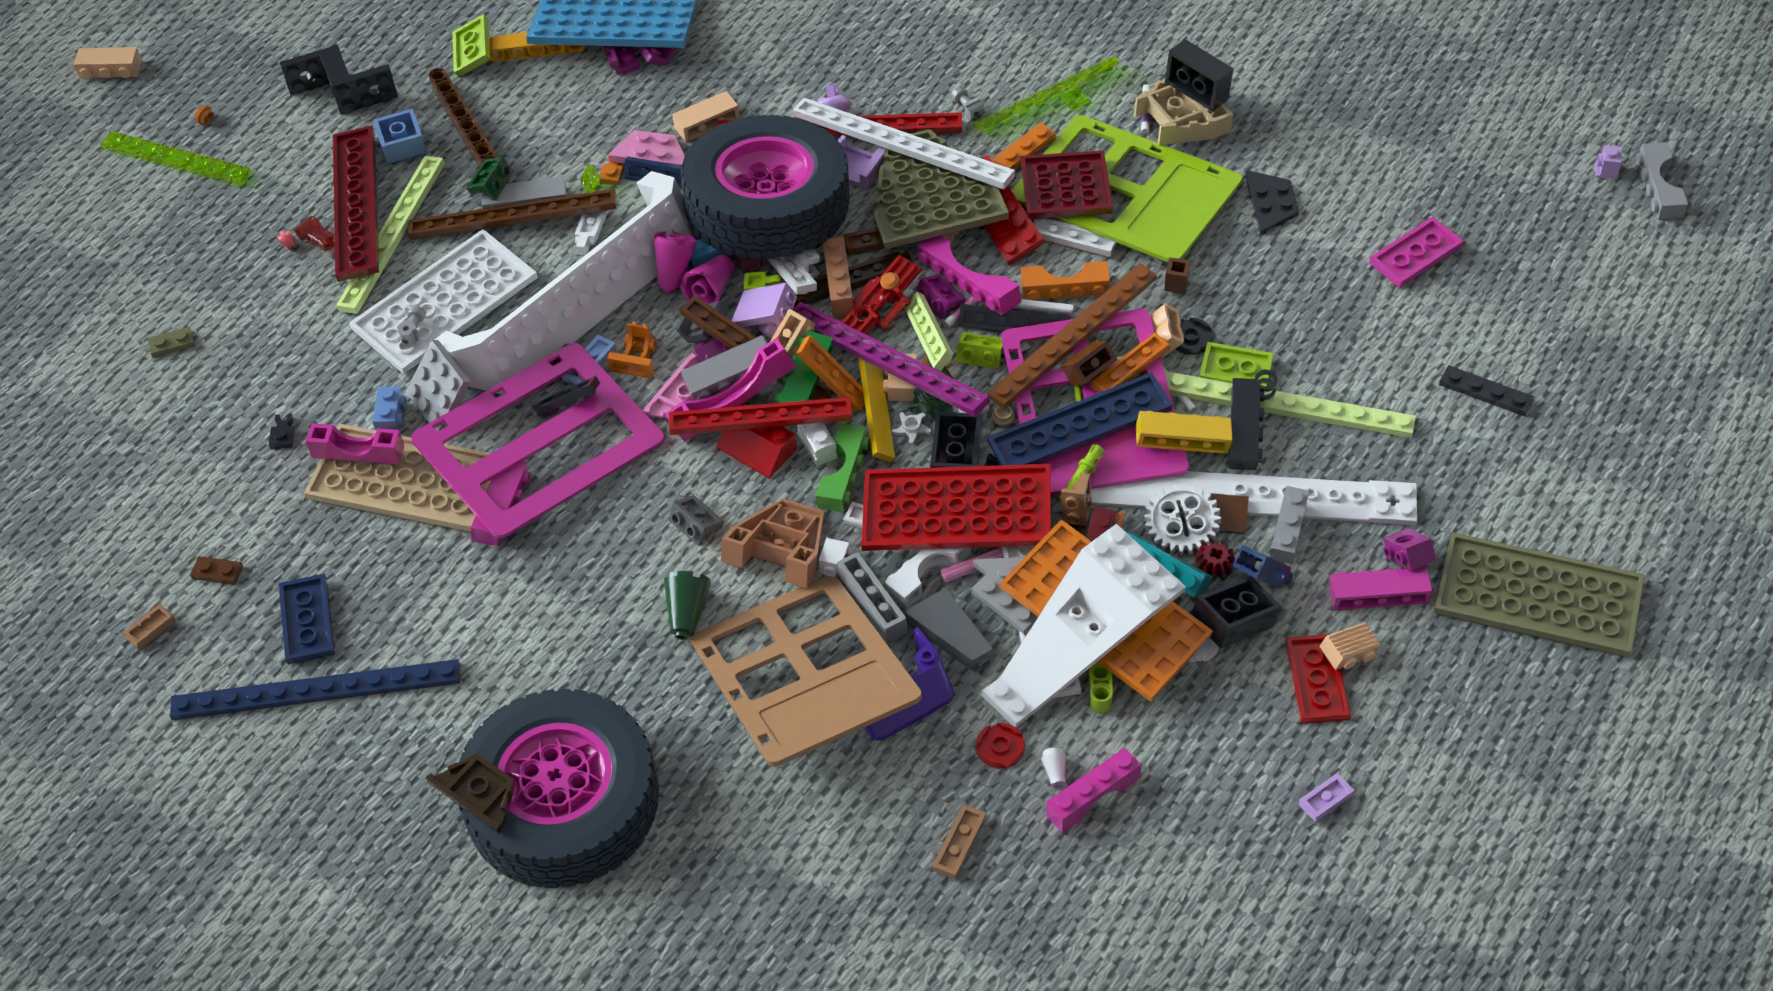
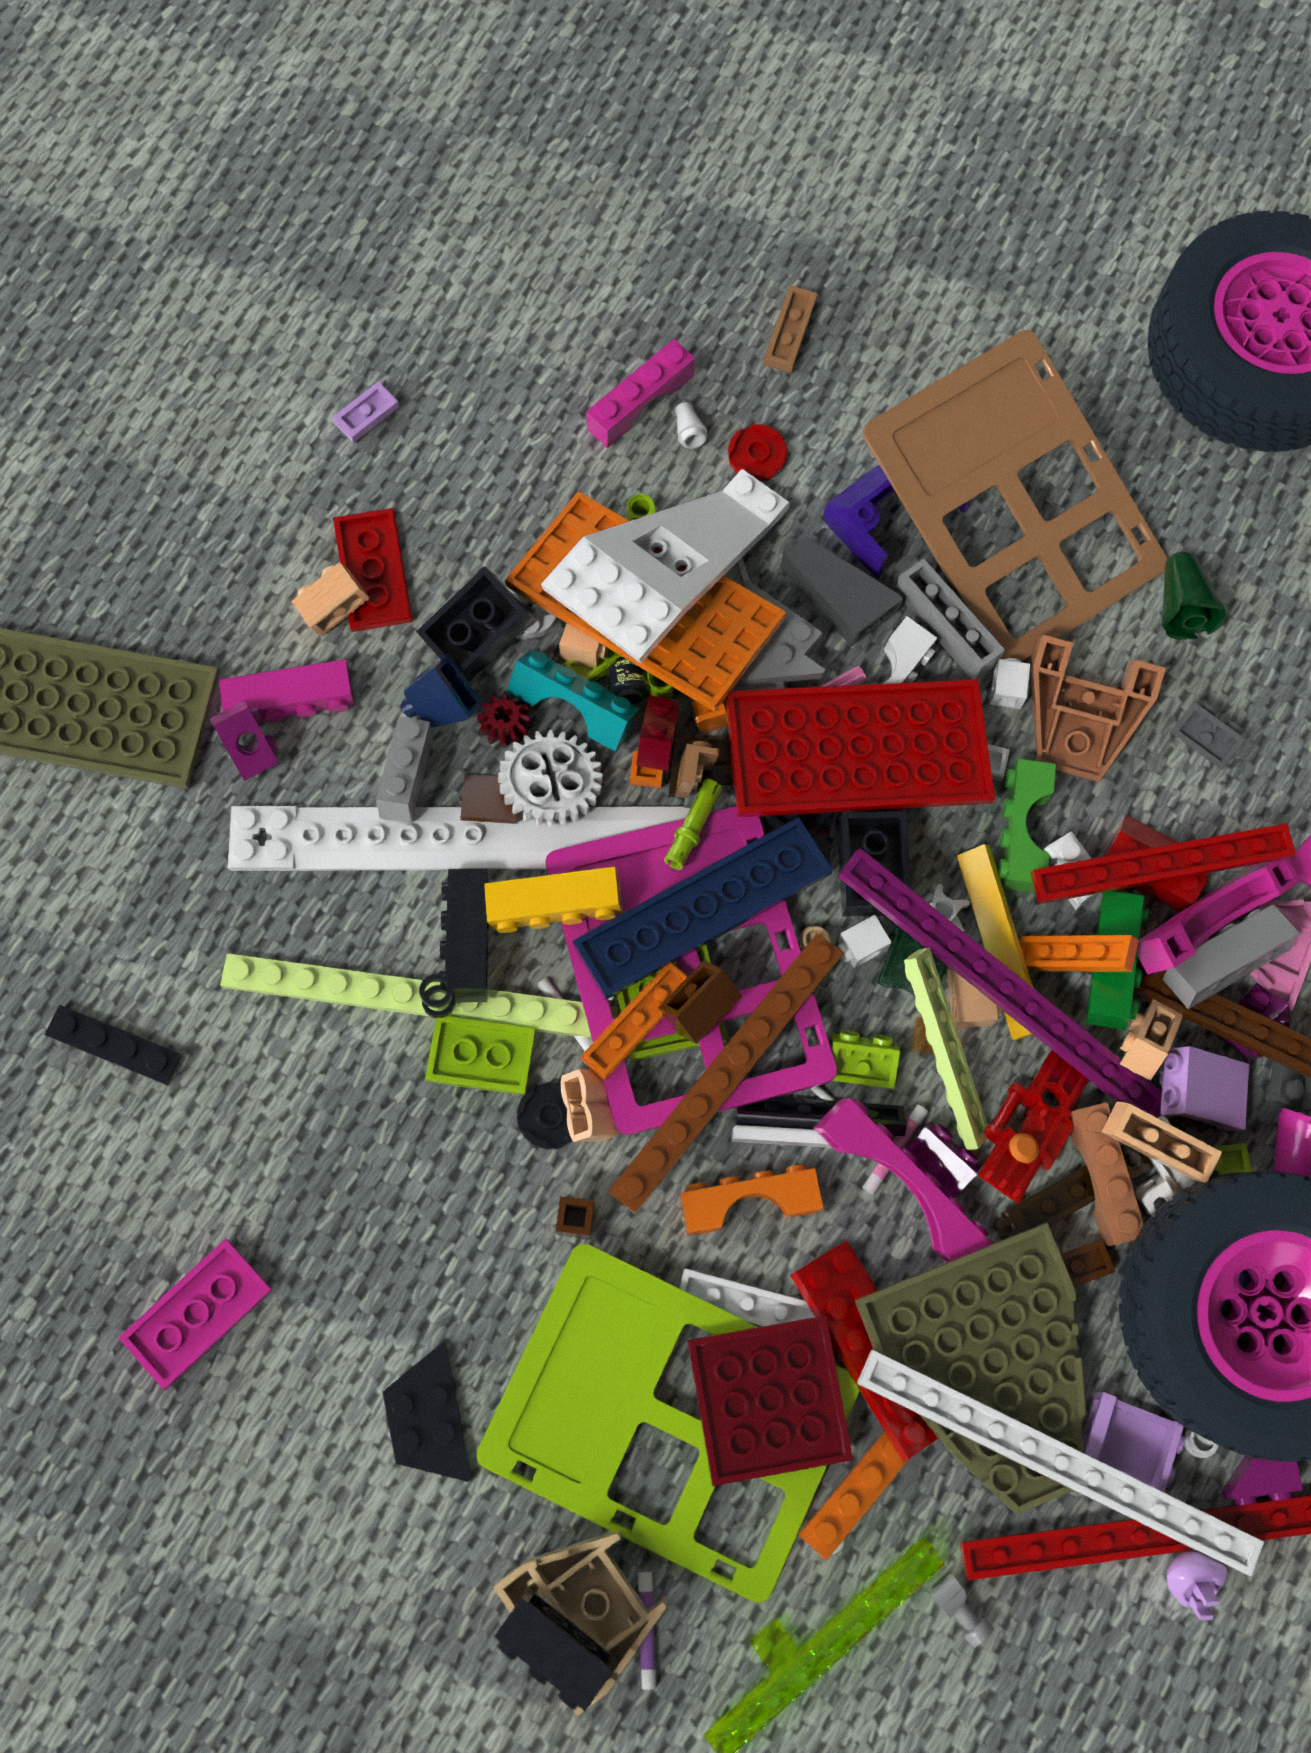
camera: 165 degrees right, 20 degrees up
(806, 265) = (1161, 1142): none -> light nougat brick

